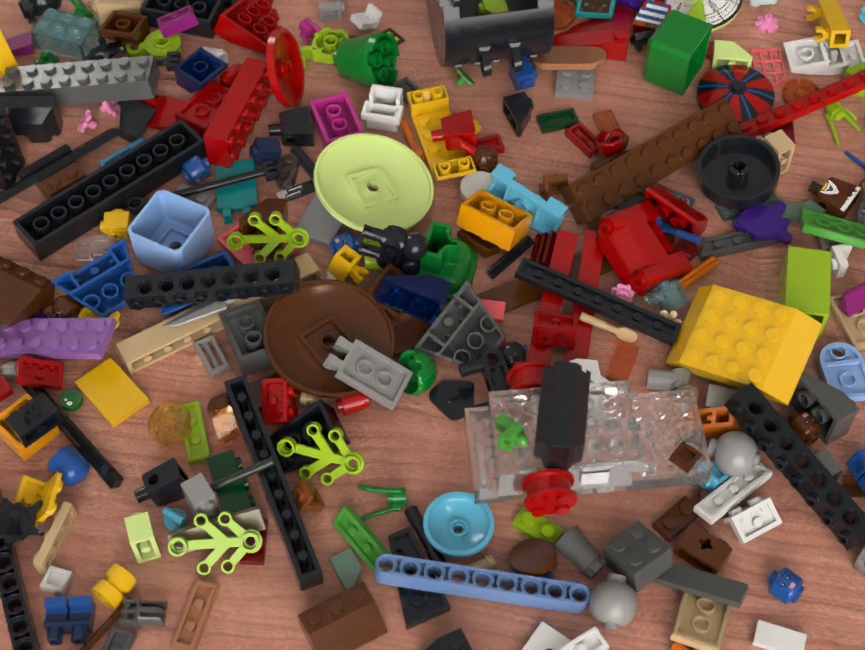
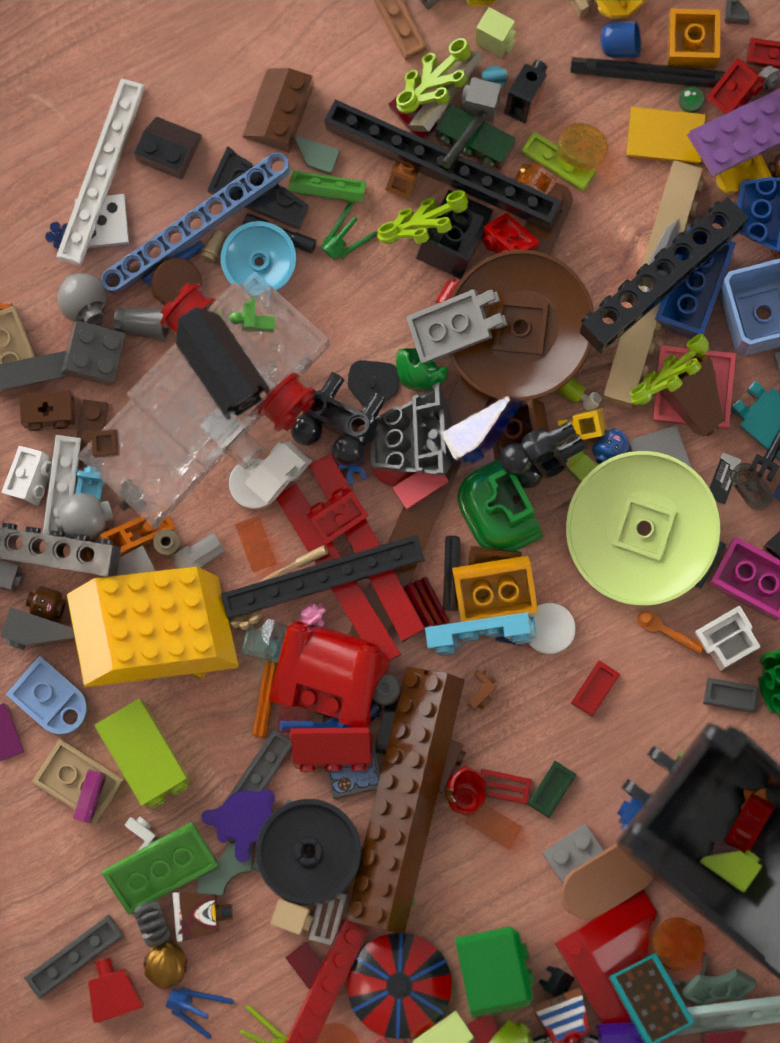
camera: 145 degrees right, 25 degrees up
(34, 420) = (679, 34): black brick -> none
(218, 369) = (616, 250): light grey tile -> none
(245, 334) = (598, 271): dark grey slope -> none
(305, 162) = (746, 515): black axle -> none
(426, 111) = (641, 655): yellow slope -> none
(460, 133) = (616, 662): red torso -> none
(518, 111) = (596, 760): black slope -> none

